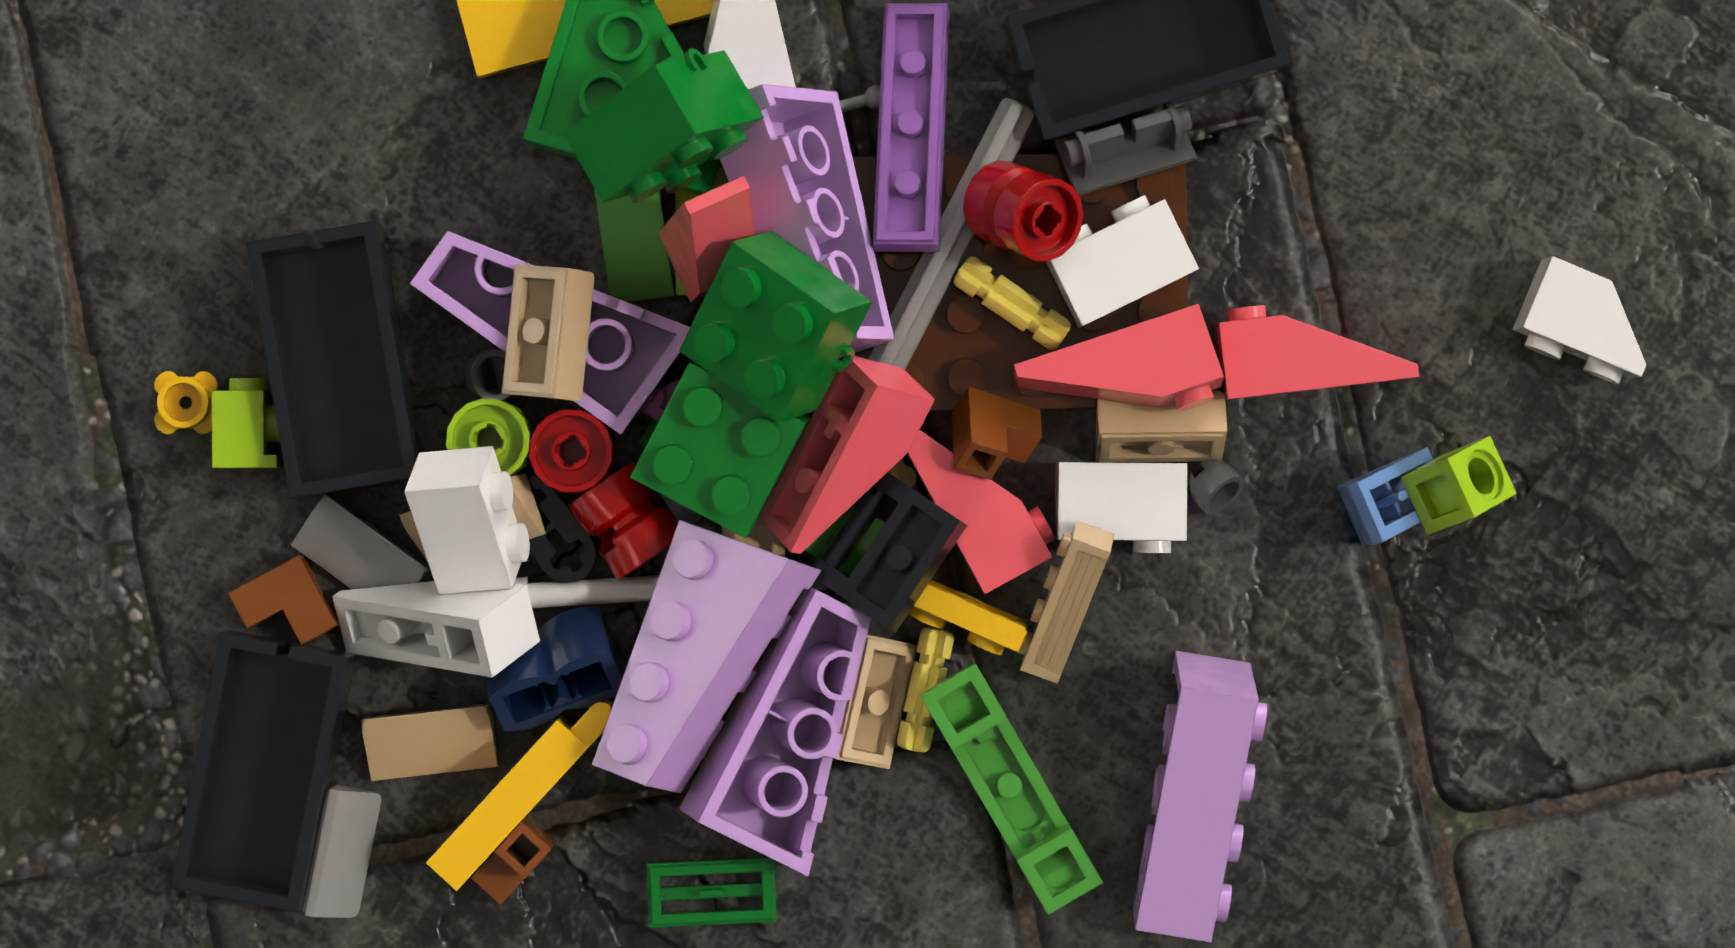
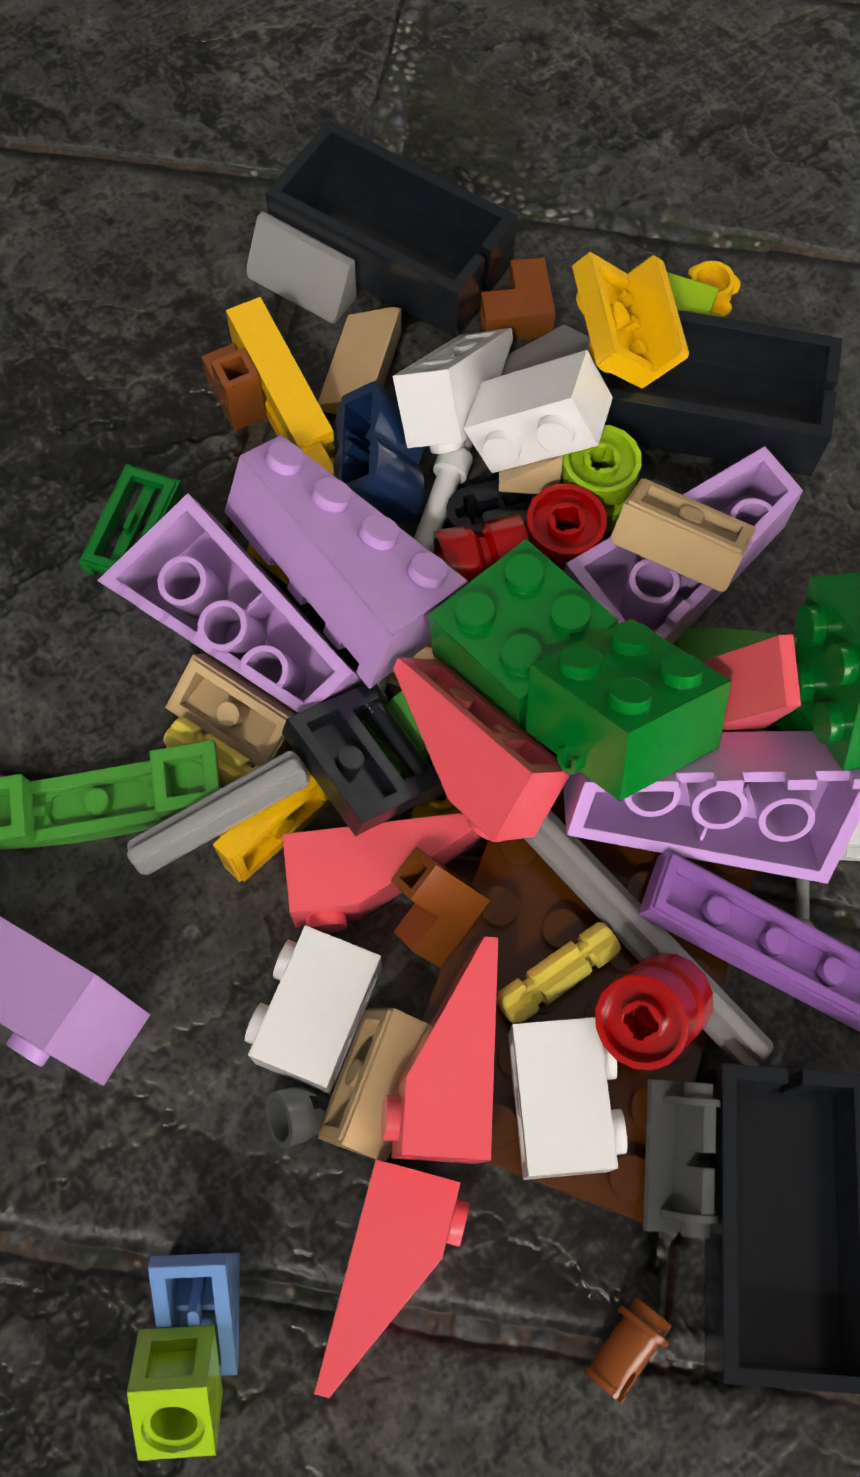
camera: 110 degrees right, 20 degrees down
(333, 465) = (630, 318): none -> yellow bracket
(989, 658) = (218, 813): none -> light grey axle
(1067, 601) = (244, 914): tan piece -> none
(1287, 139) = (628, 1349): none -> dark orange pin

